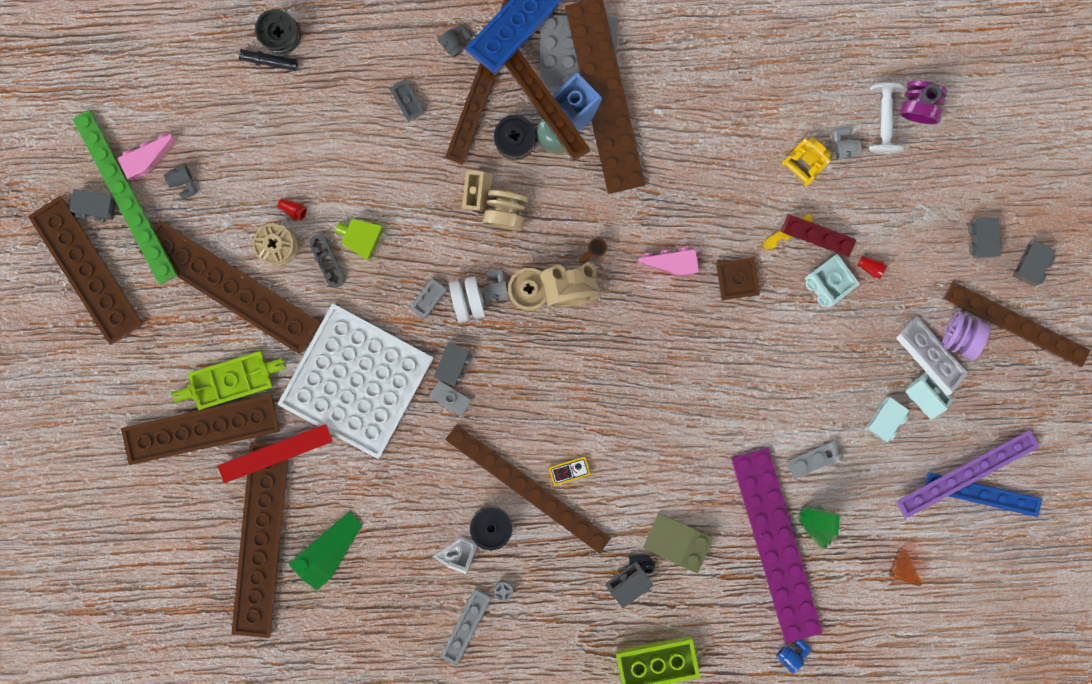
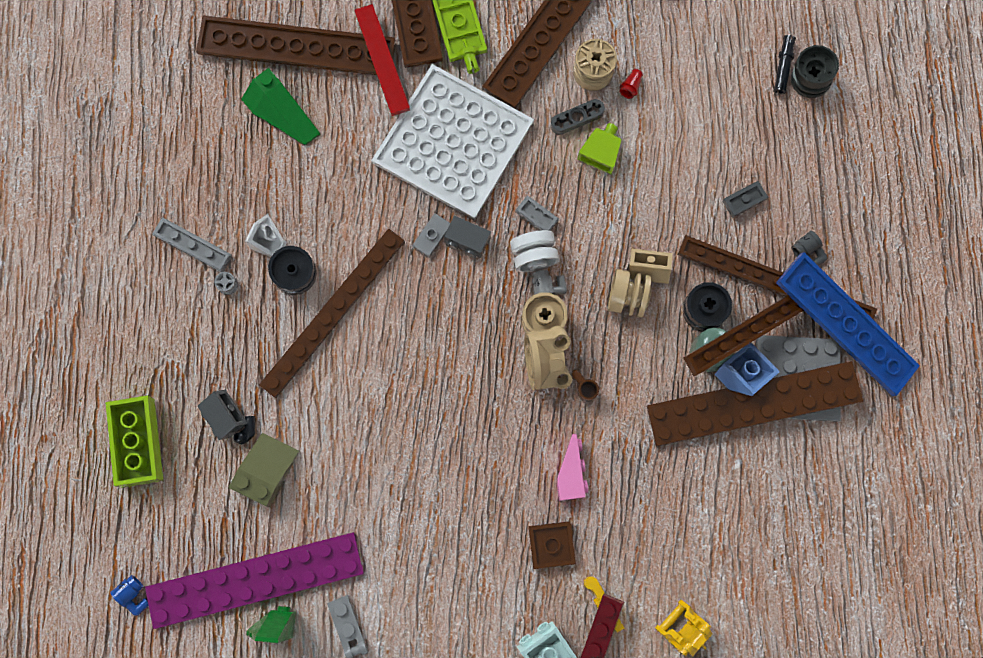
camera: 85 degrees right, 10 degrees down
(569, 471) = (349, 356): tile -> none

